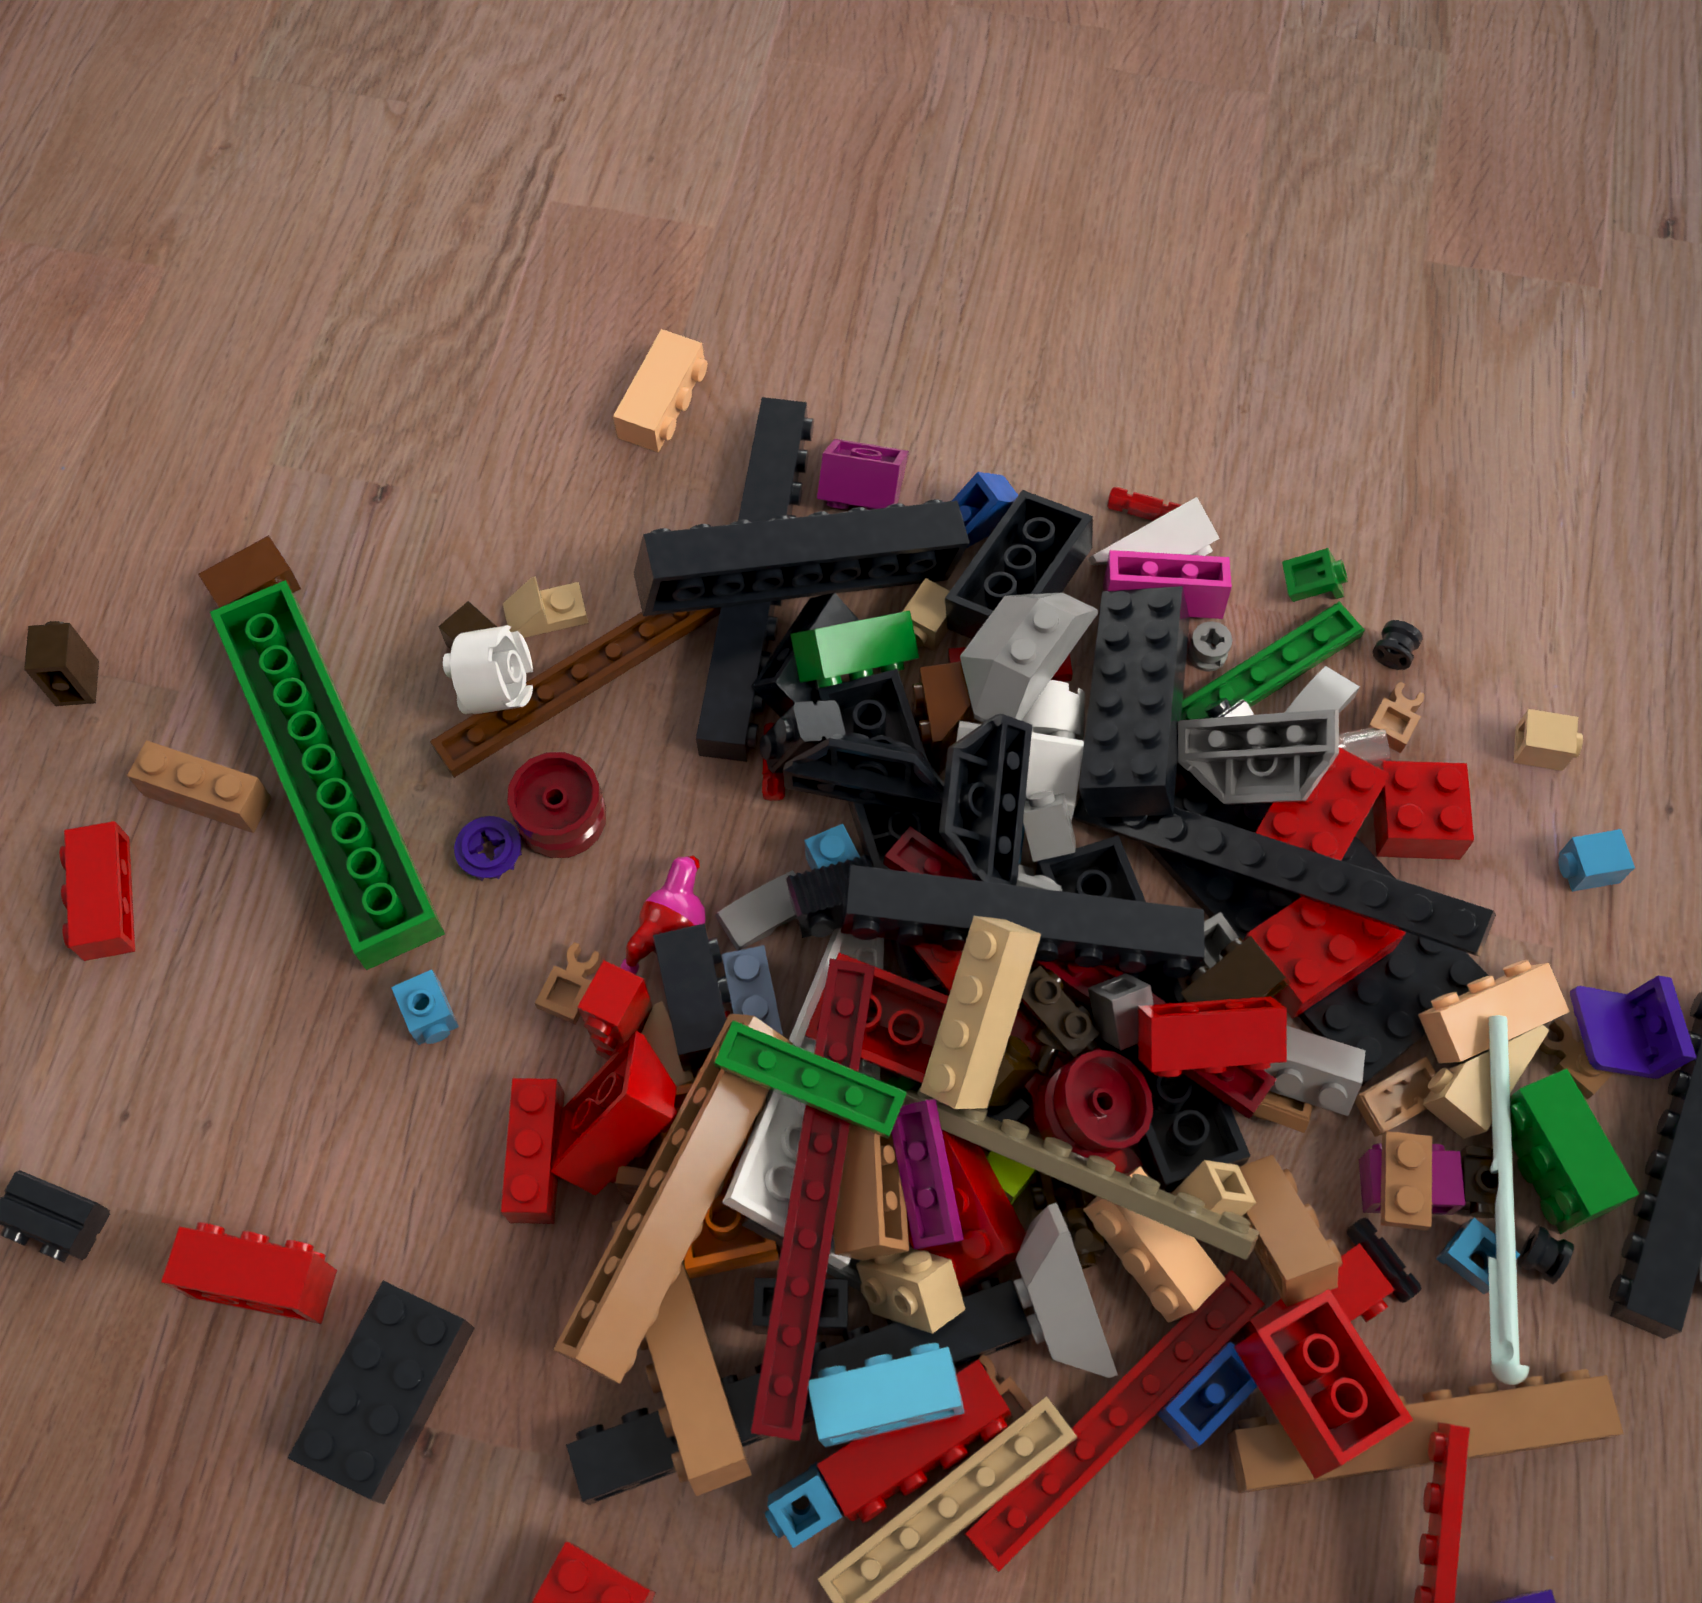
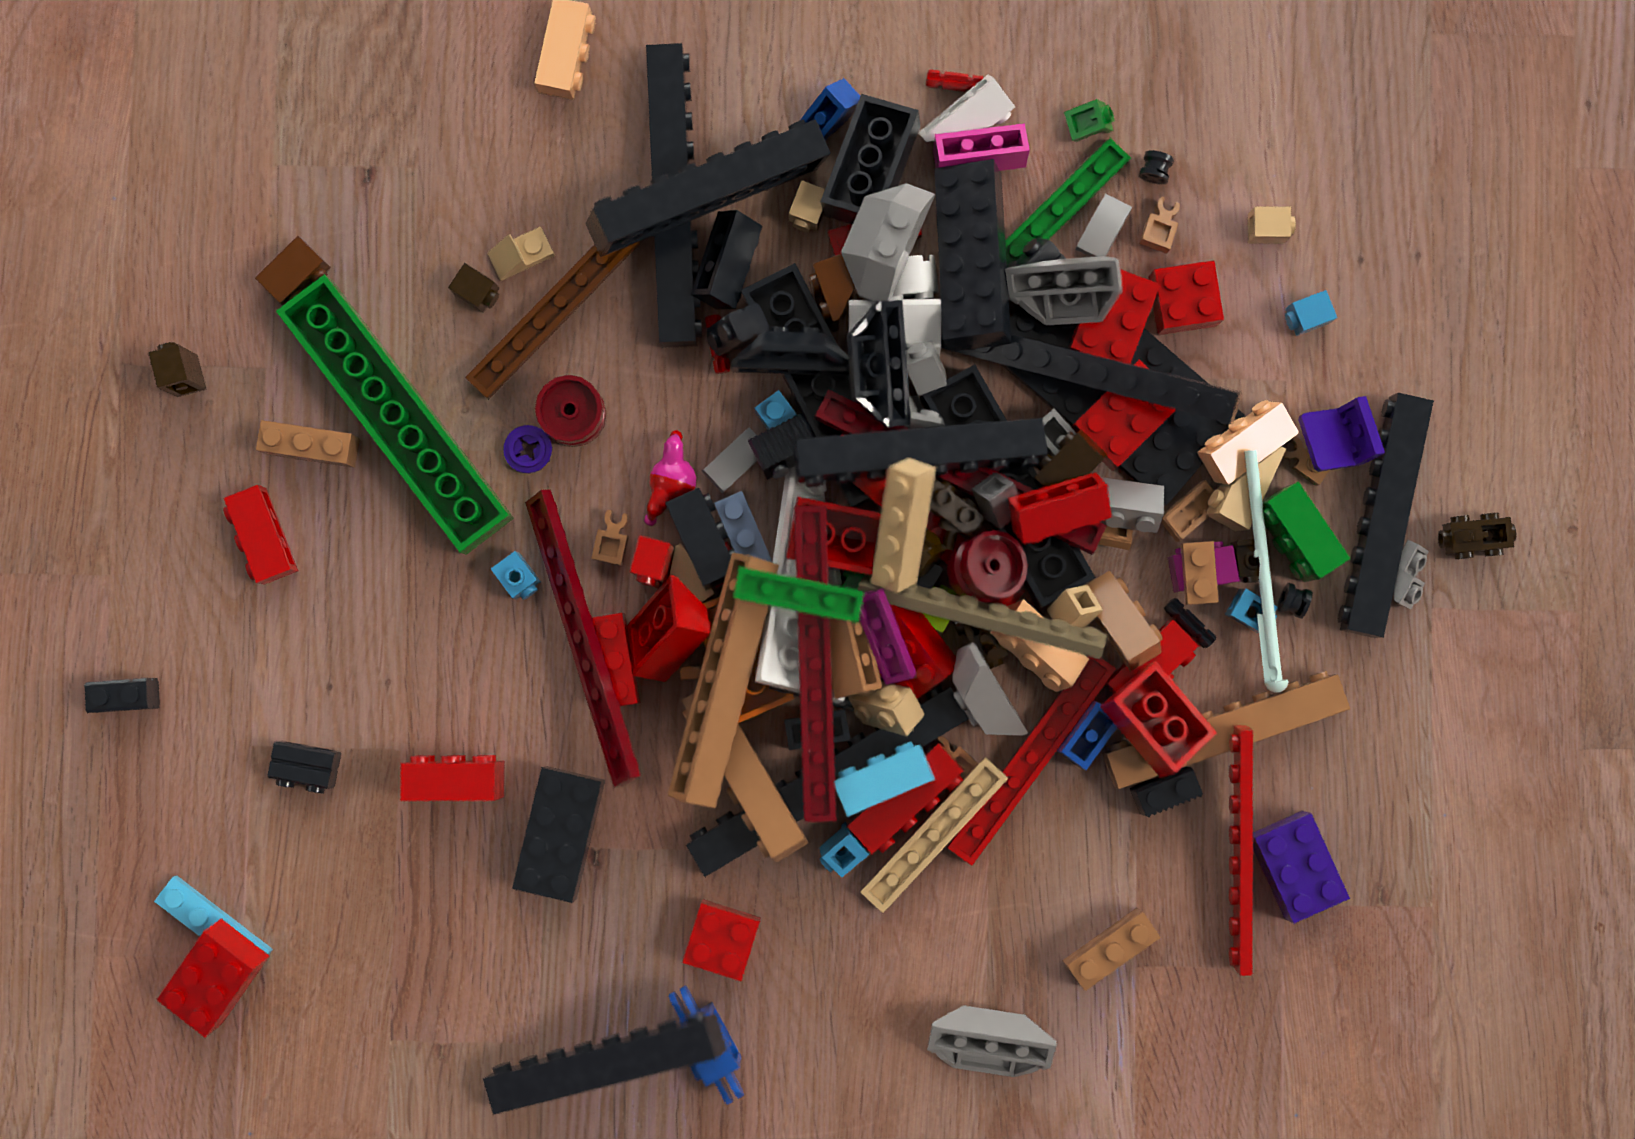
camera: 15 degrees left, 20 degrees up
(489, 670) = (498, 320): white brick -> none
(492, 1116) = (582, 639): none -> dark red plate
(855, 648) = (761, 250): green brick -> none
(861, 475) = (736, 94): magenta slope -> none
(1201, 652) = (1017, 199): light grey wheel -> none
(1321, 1512) = (1166, 792): none -> black brick
(1367, 745) = (1139, 258): clear brick -> none

